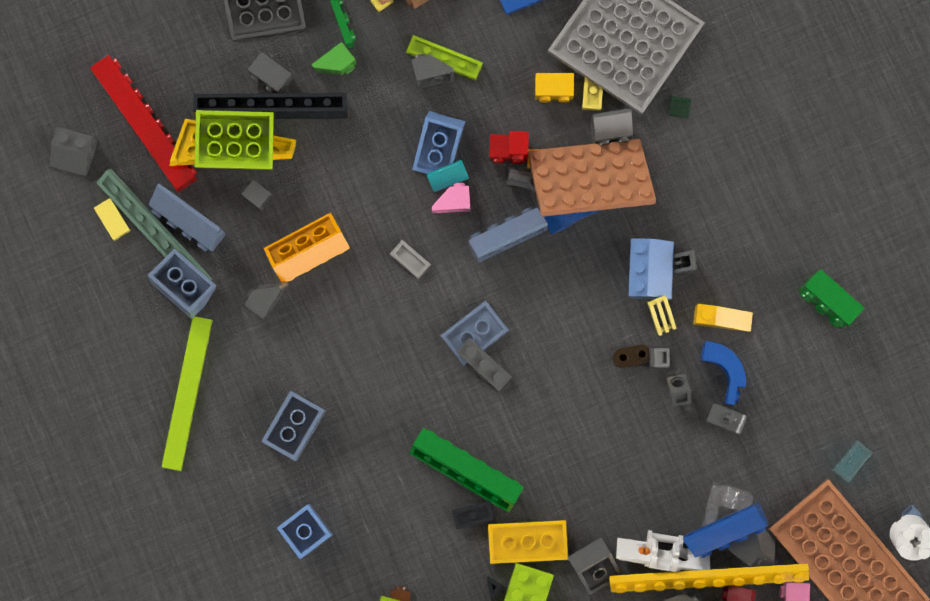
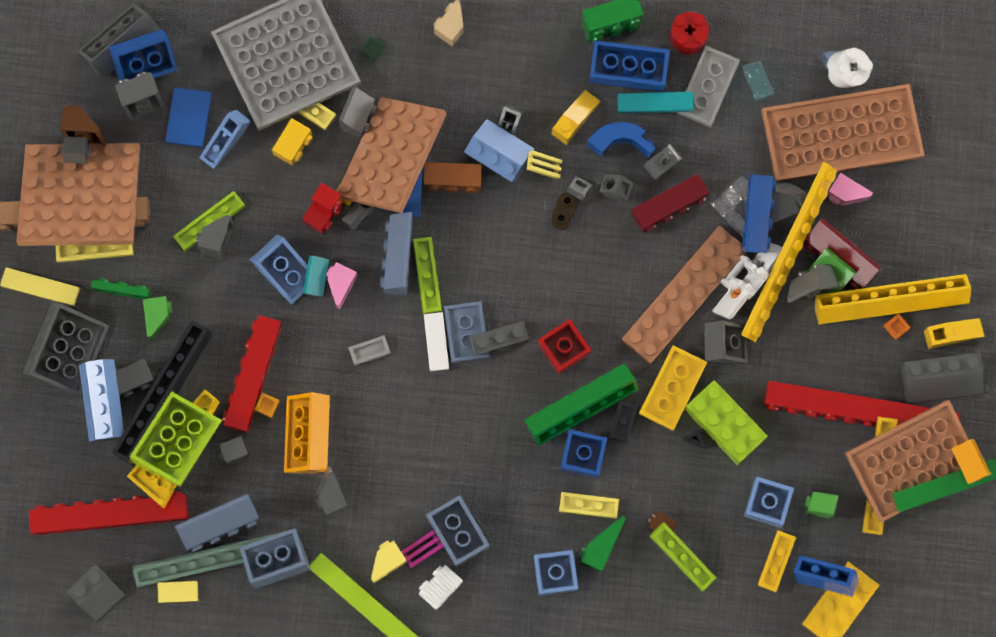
camera: 65 degrees left, 5 degrees down
(235, 59) = (101, 399): none -> medium blue slope
(236, 379) = (387, 560): none -> light yellow slope
(238, 438) = (440, 587): none -> white brick
(248, 396) = (418, 542): none -> dark pink tile
(312, 200) = (267, 405): none -> light orange tile
(331, 172) = (252, 375): none -> red brick
(347, 557) = (599, 549): none -> green slope
(382, 526) = (589, 505): none -> light yellow tile
(423, 496) = (583, 454): none -> blue brick
(450, 312) = (436, 341): none -> white tile
(505, 270) = (427, 275): none -> lime tile
(508, 426) = (564, 346): none -> red brick
(524, 27) = (225, 138): none -> medium blue slope
(604, 242) = (452, 177): none -> dark orange brick
(618, 505) = (684, 295): none -> nougat plate
(693, 446) = (669, 203): none -> dark red brick
(740, 162) = (451, 24): none -> tan slope
(777, 381) = (655, 102): none -> teal tile
(796, 339) = (629, 66): none -> blue brick
(820, 419) = (710, 85): none -> light grey tile
(870, 376) = (693, 23): none -> red brick

